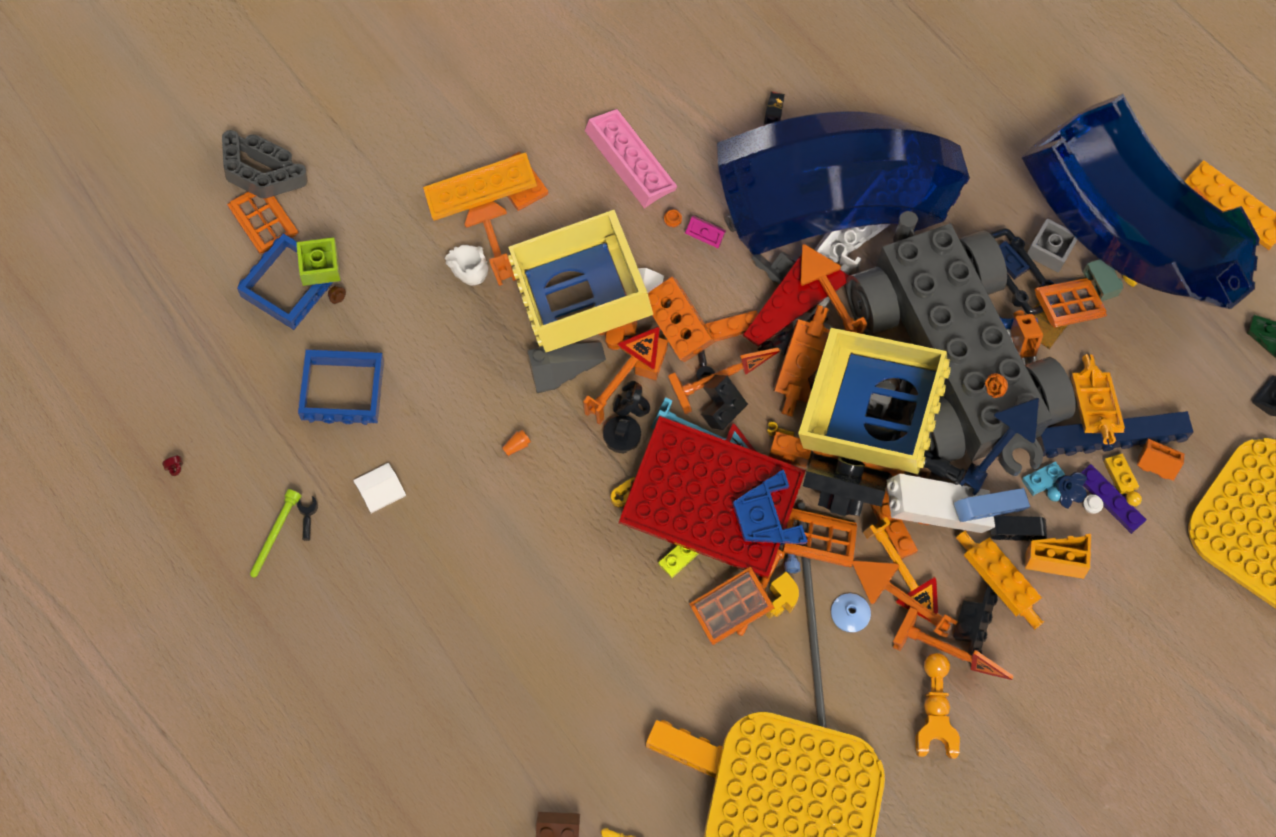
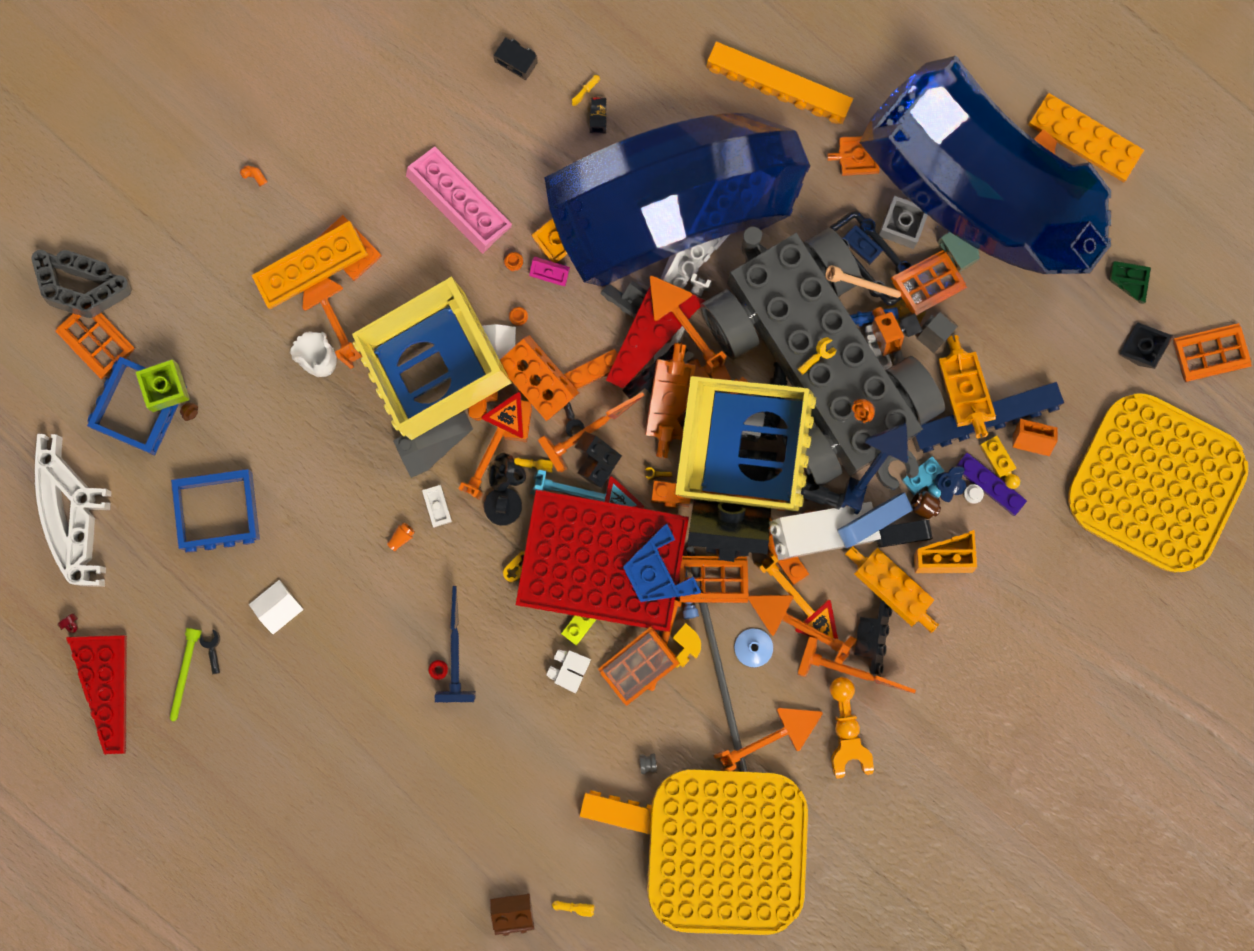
camera: 10 degrees left, 15 degrees up
(190, 398) = (63, 540): none -> white piece
(193, 526) = (102, 675): none -> red wing
(443, 102) = (255, 173): none -> orange arm
(525, 570) = (433, 665): none -> red plate
(541, 599) = (455, 693): none -> dark blue piece
(557, 421) = (437, 506): none -> white plate
(656, 399) = (544, 465): none -> yellow piece
(663, 599) = (570, 661): none -> white hips
(668, 266) = (518, 316): none -> orange plate
(706, 49) = (516, 58): none -> black brick
(712, 205) = (549, 241): none -> light orange slope
(725, 705) = (648, 764): none -> dark grey wheel
(767, 85) = (586, 88): none -> yellow piece
(884, 694) = (797, 725): none -> orange piece
(949, 109) = (779, 83): none -> light orange brick
(961, 329) = (821, 351): none -> yellow piece
(983, 265) = (836, 274): none -> light nougat piece
(1014, 183) = (853, 158): none -> orange plate
(1044, 504) = (926, 504): none -> reddish brown head
(1050, 332) = (909, 324): none -> black plate
(1074, 343) = (936, 331): none -> dark grey wedge

